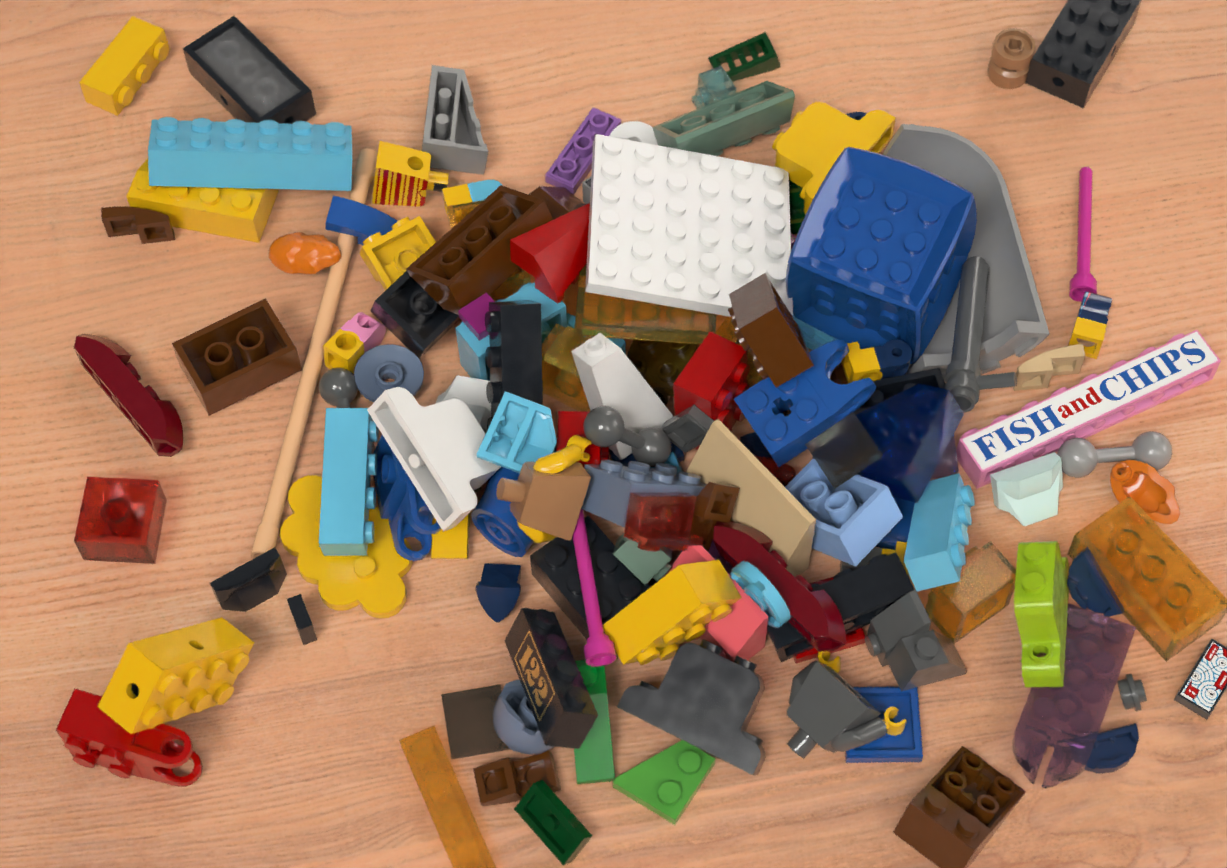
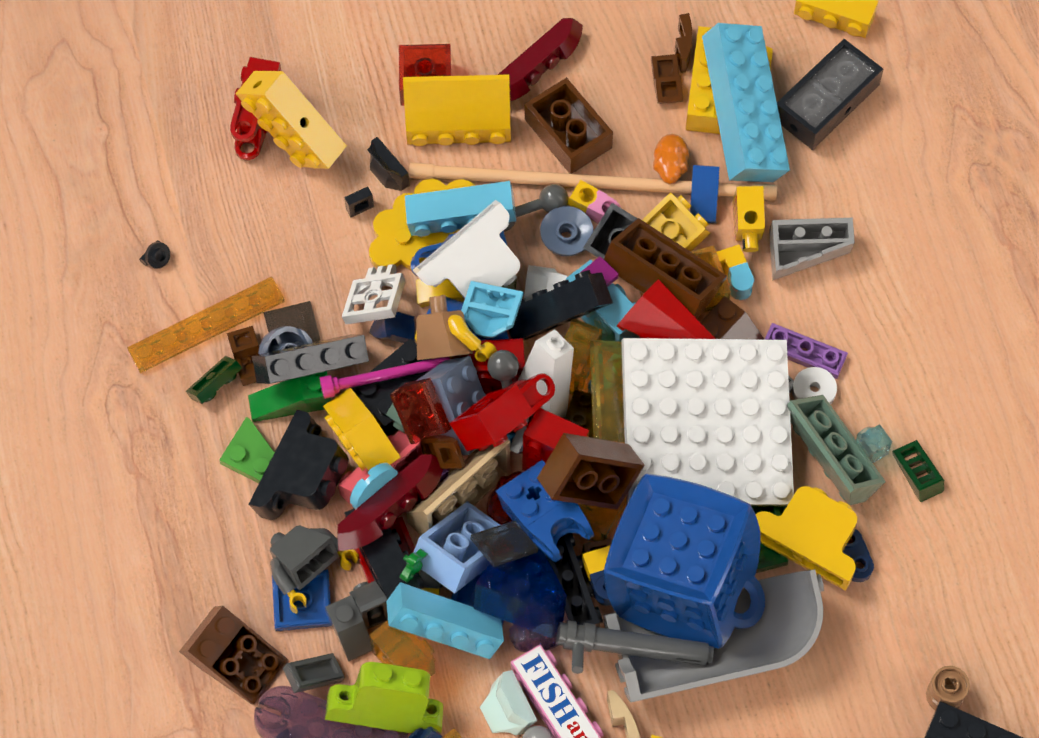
camera: 85 degrees right, 5 degrees up
(189, 253) = (666, 79): none -> reddish brown slope
(195, 477) = (457, 109): none -> yellow slope
(429, 599) = (371, 285): none -> white piece
(678, 426) = (500, 413): none -> red brick
(870, 551) = (413, 564): none -> green piece
(992, 705) = (313, 673): none -> dark grey tile

